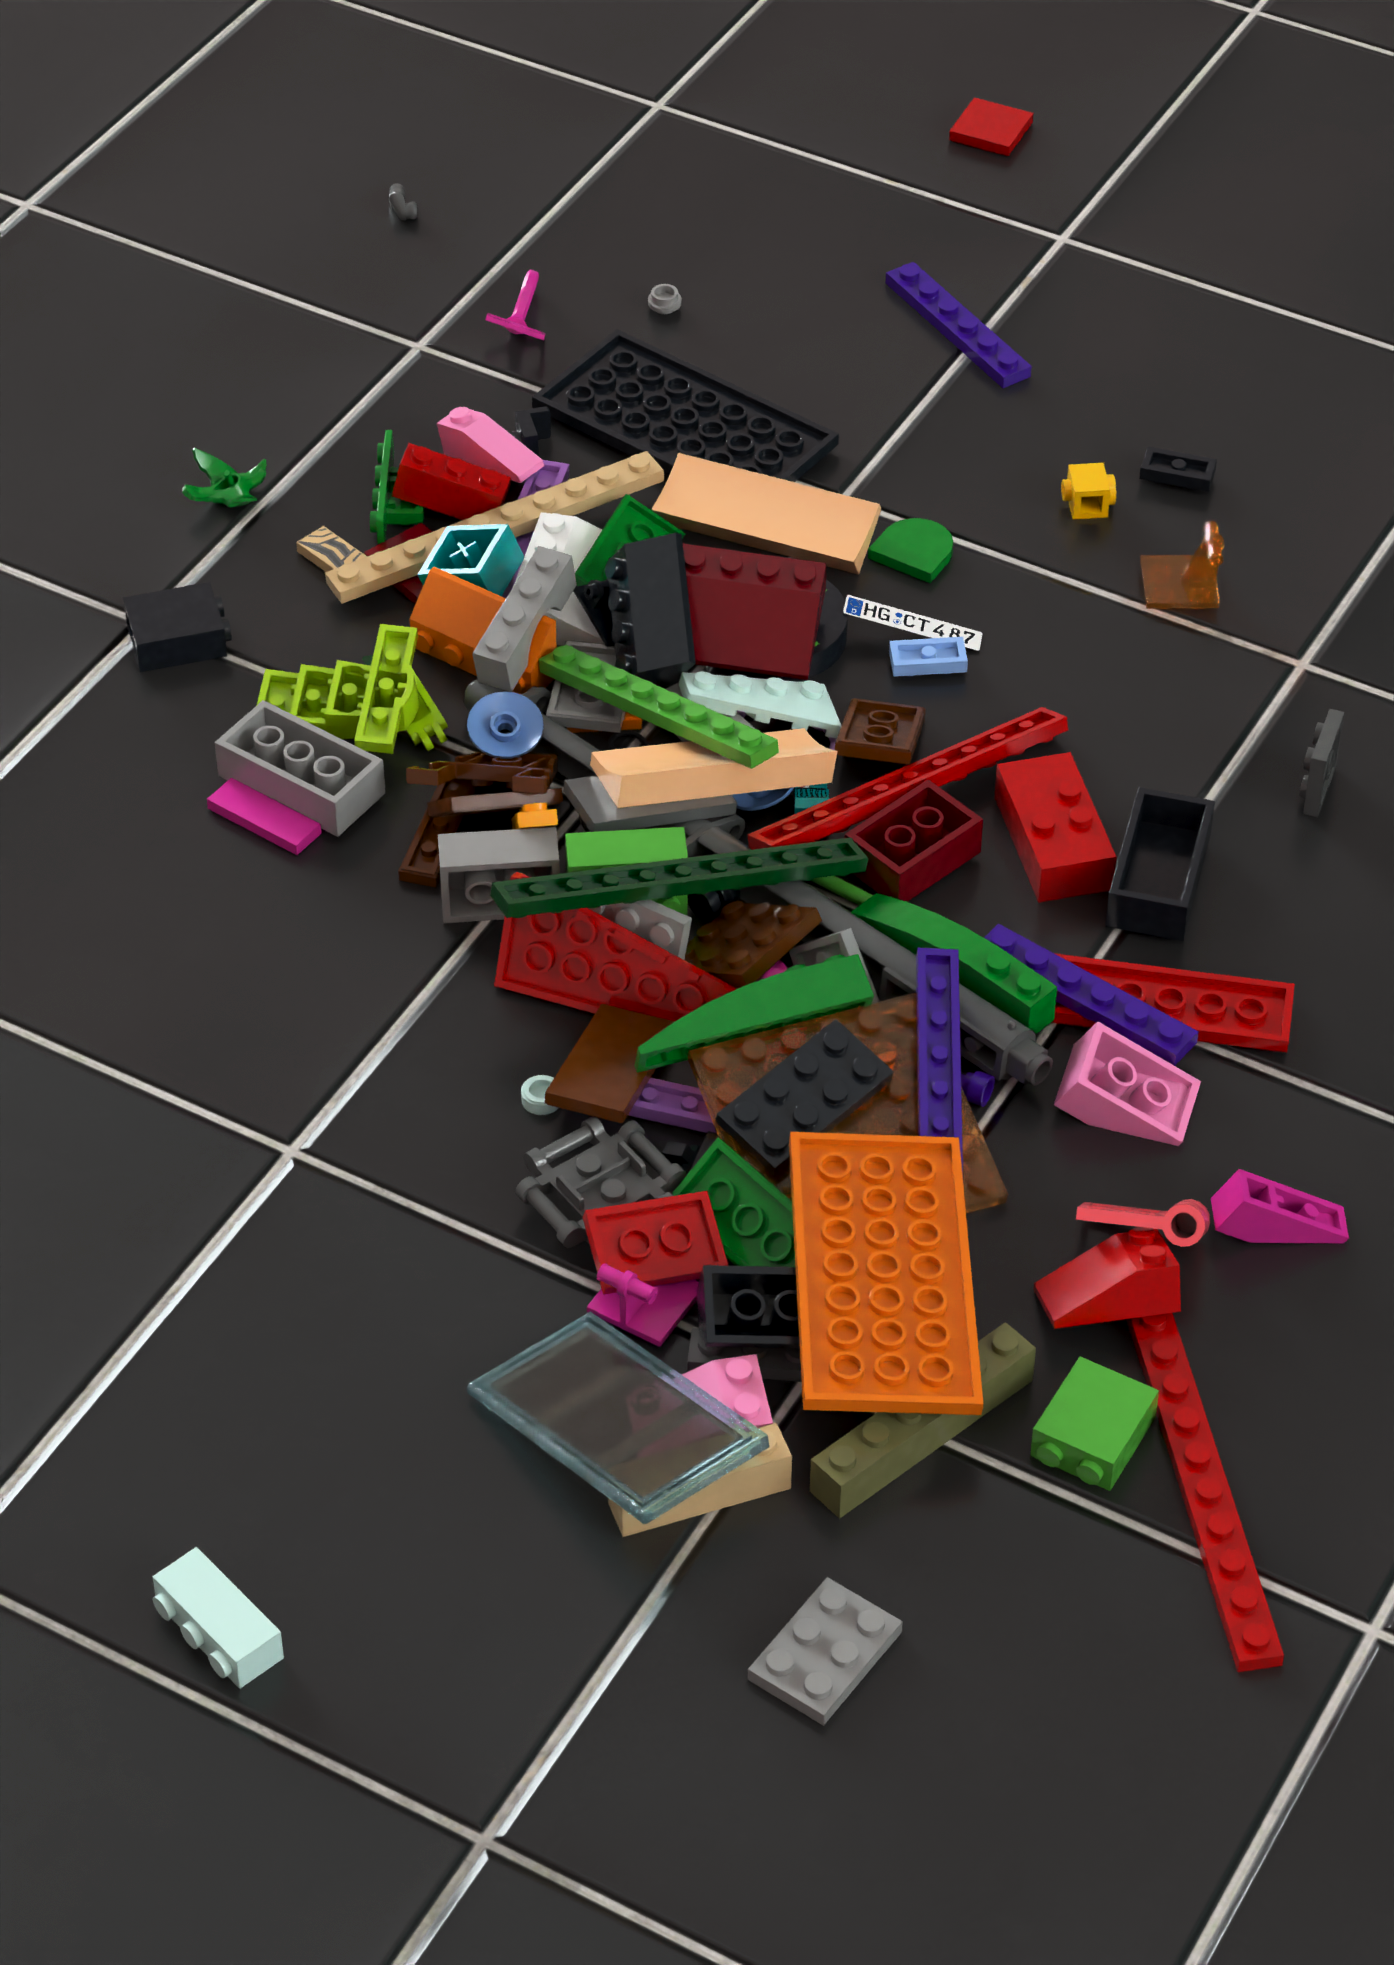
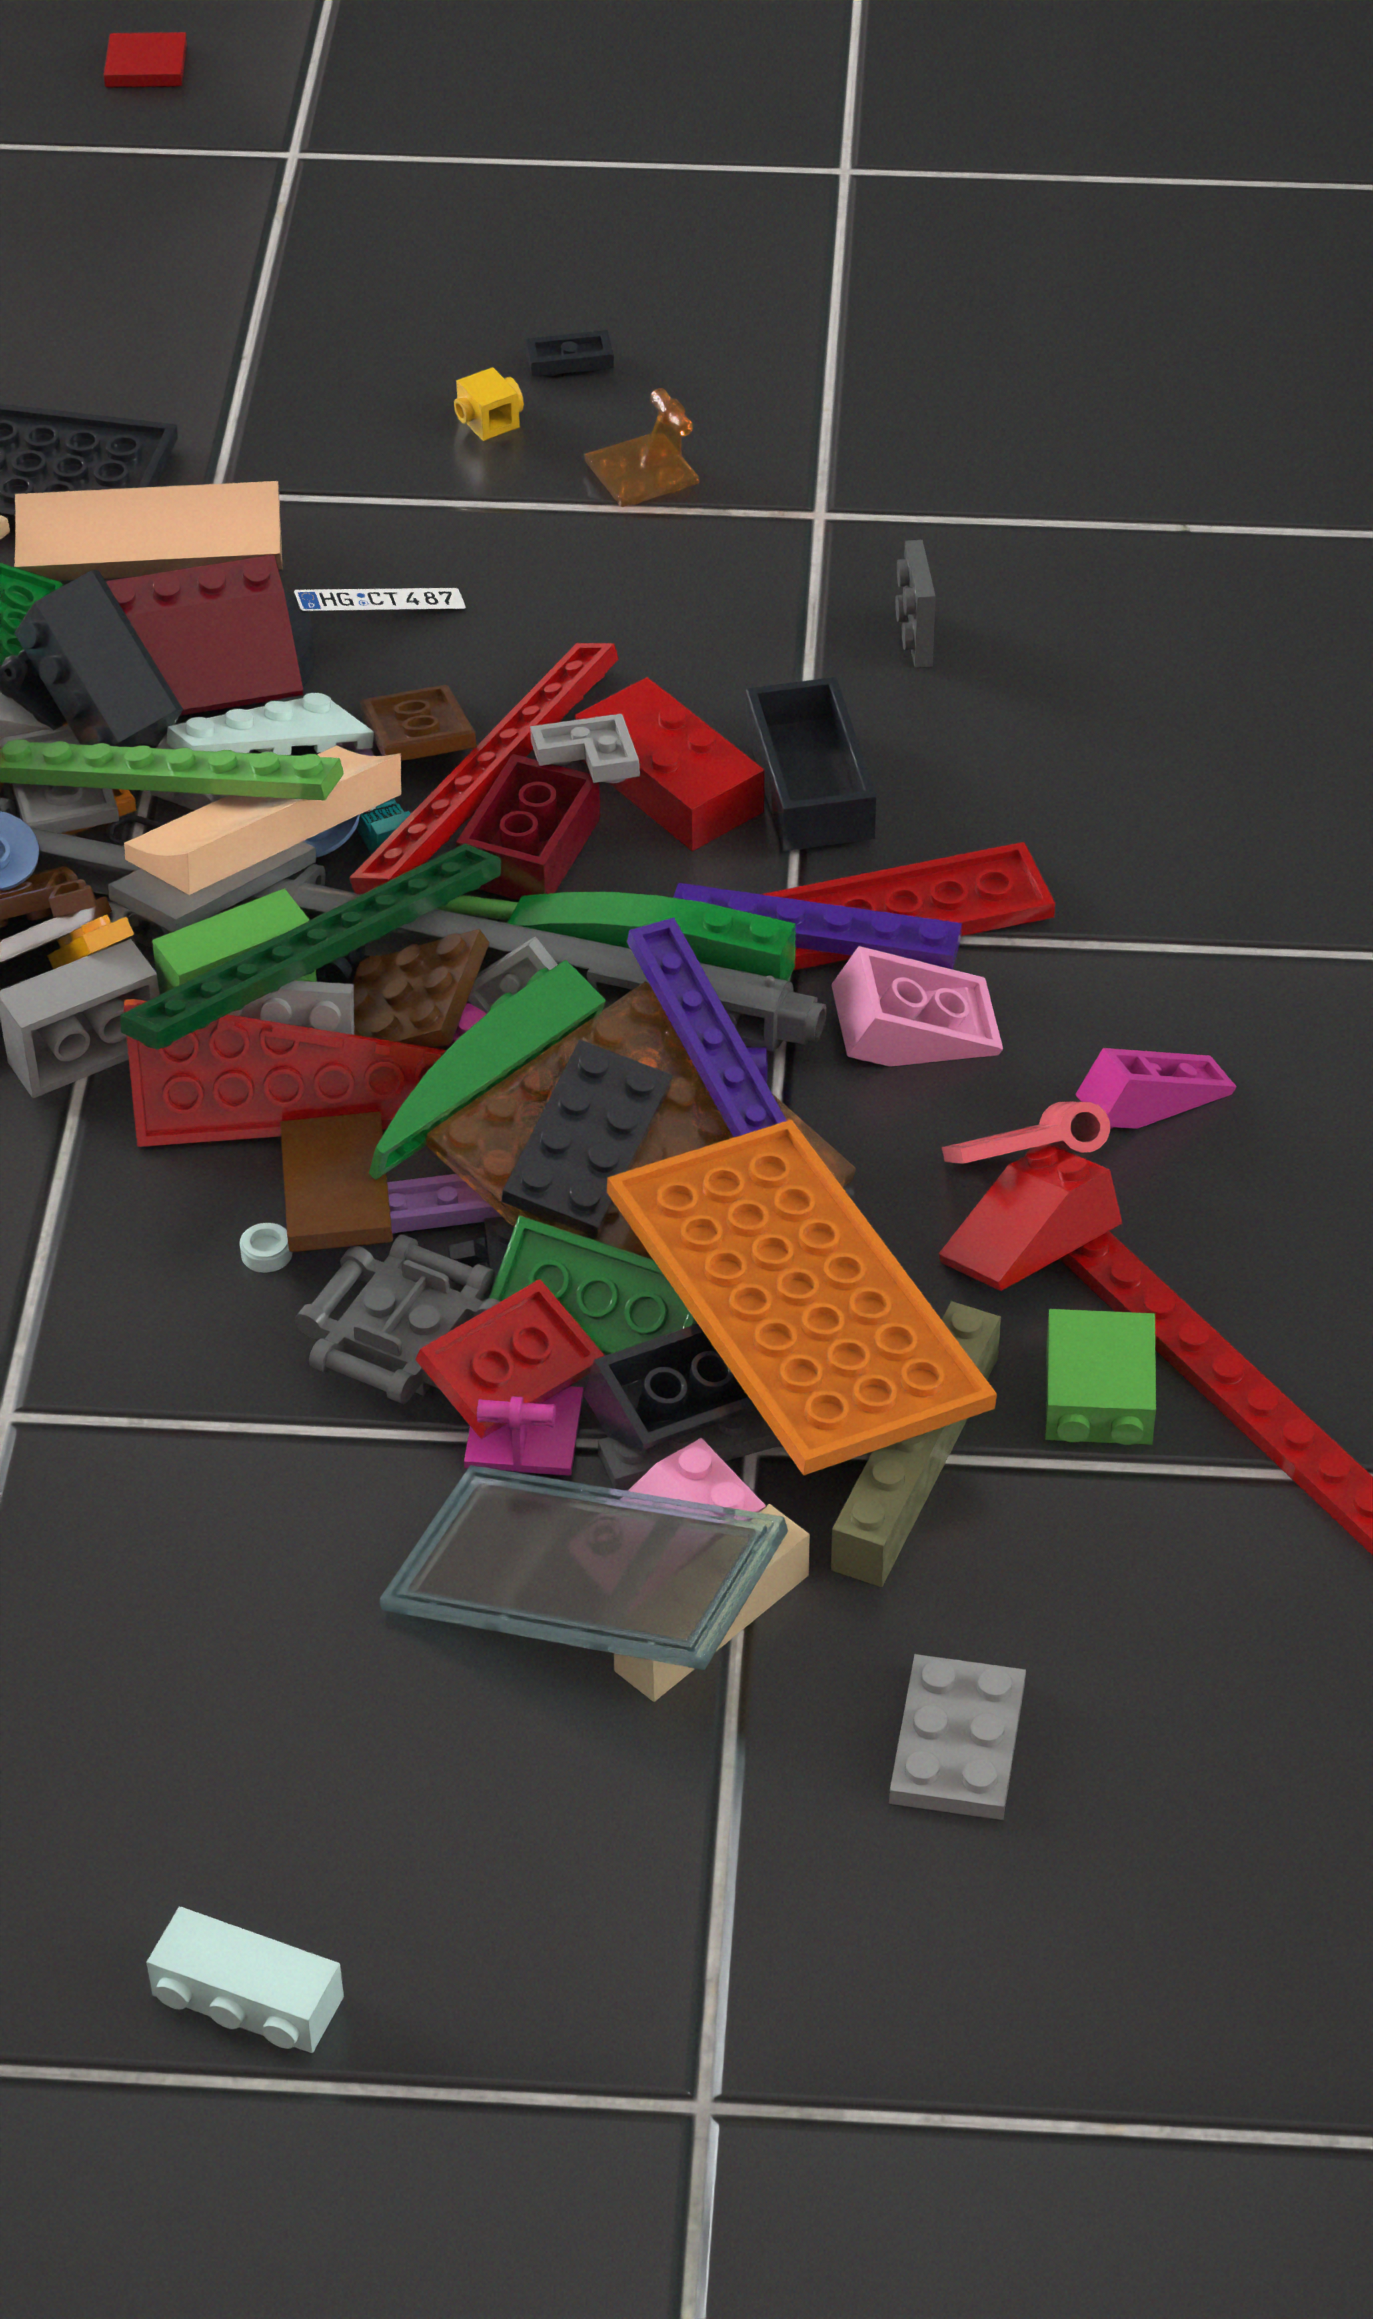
camera: 25 degrees left, 0 degrees up
(914, 547) = (330, 521): green tile -> none
(928, 656) = (418, 629): light blue plate -> none
(958, 325) = (235, 274): dark purple plate -> none
(994, 791) = (598, 740): none -> light grey plate

